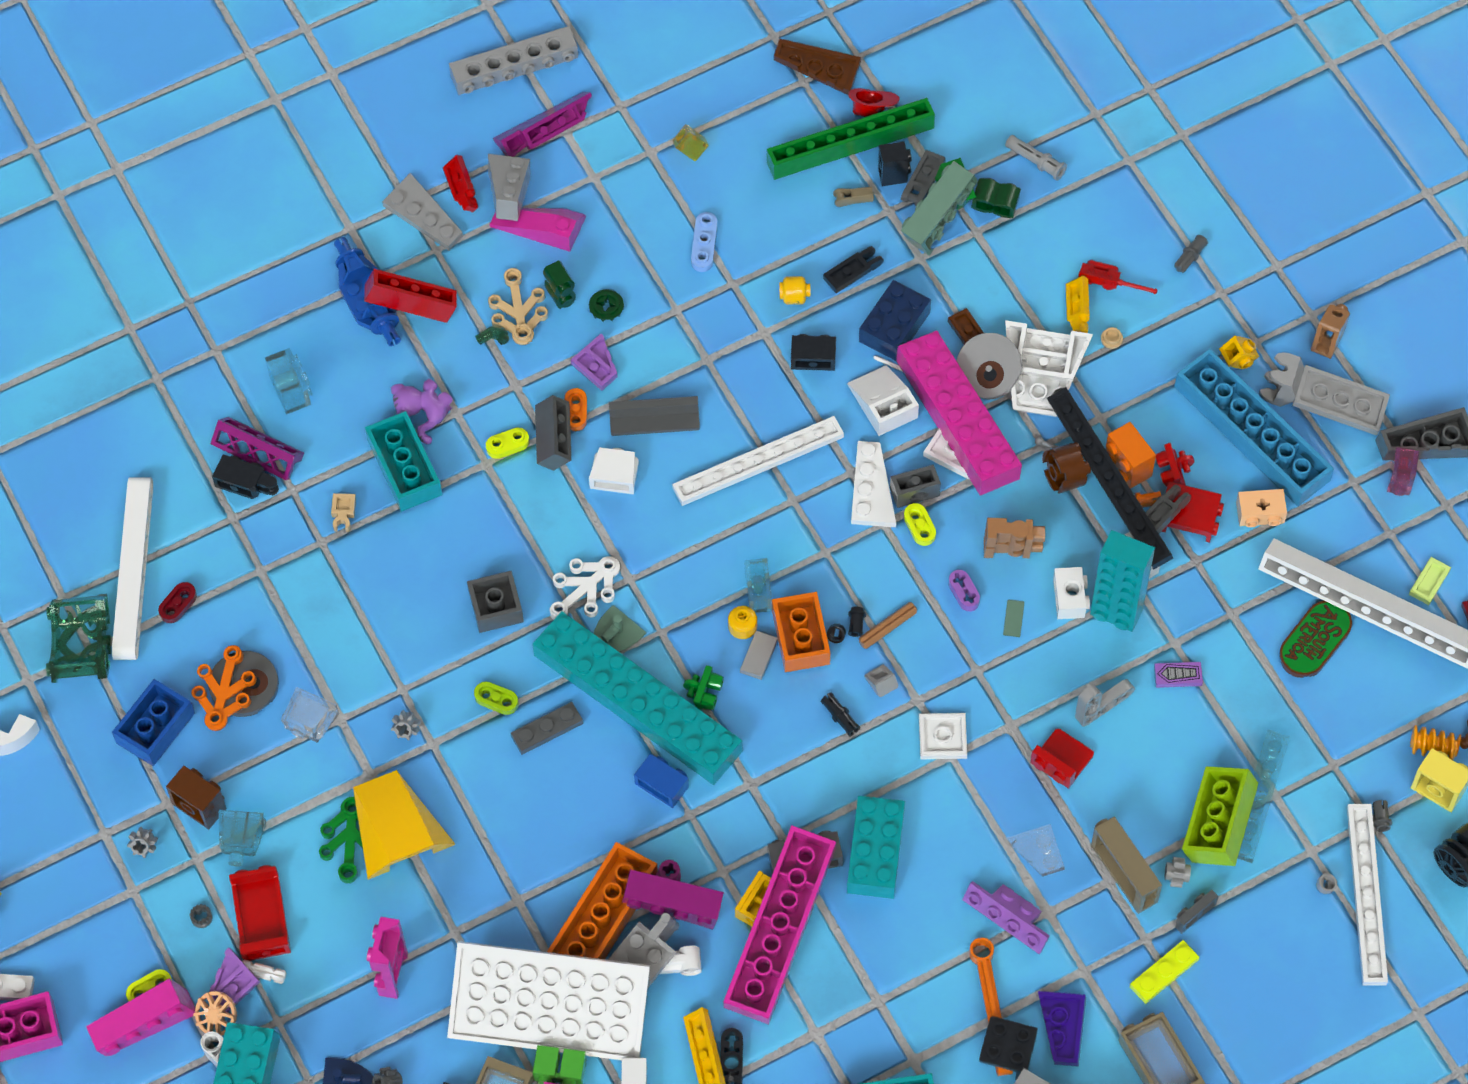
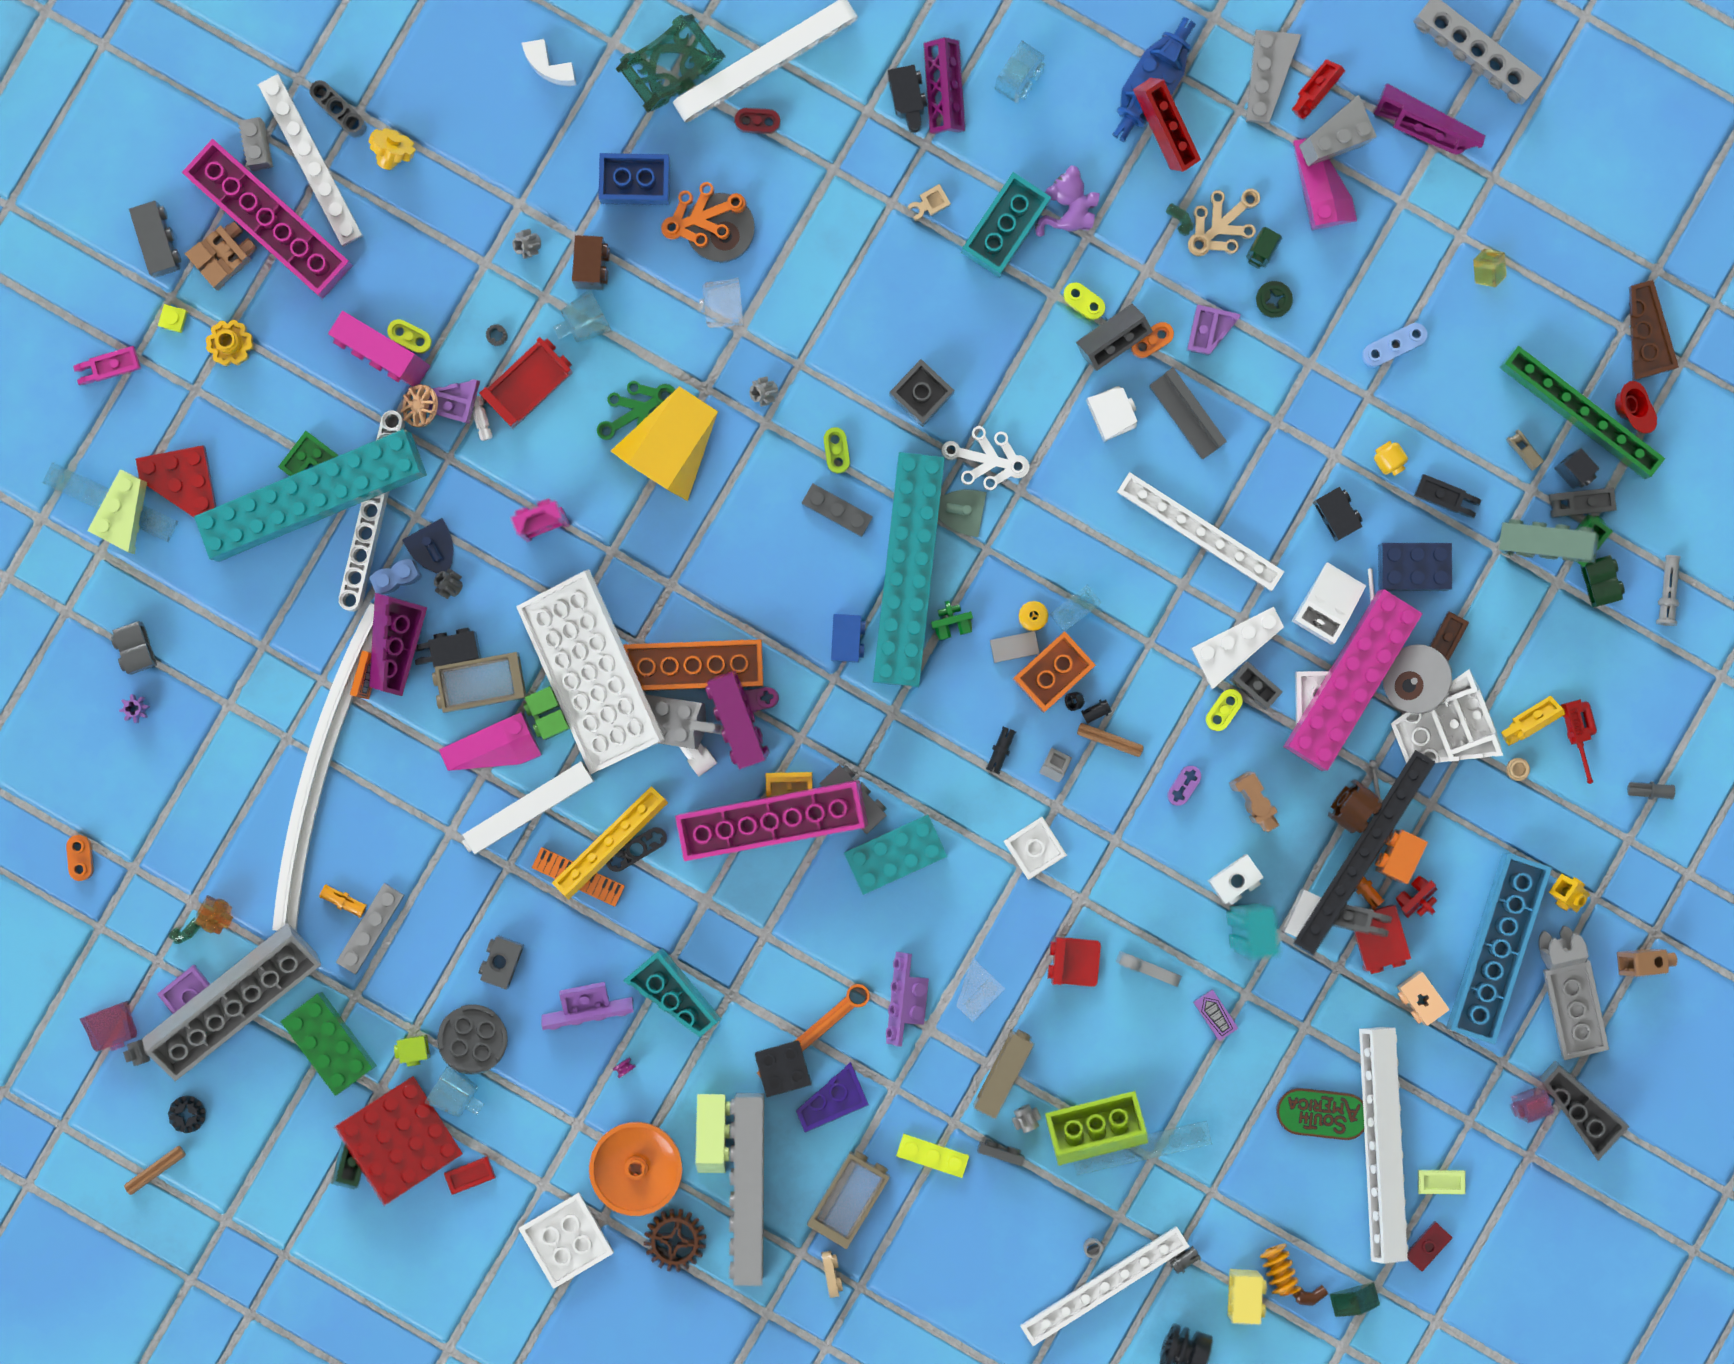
camera: 55 degrees right, 25 degrees up
(1013, 618) = (1185, 842): sand green sticker -> none

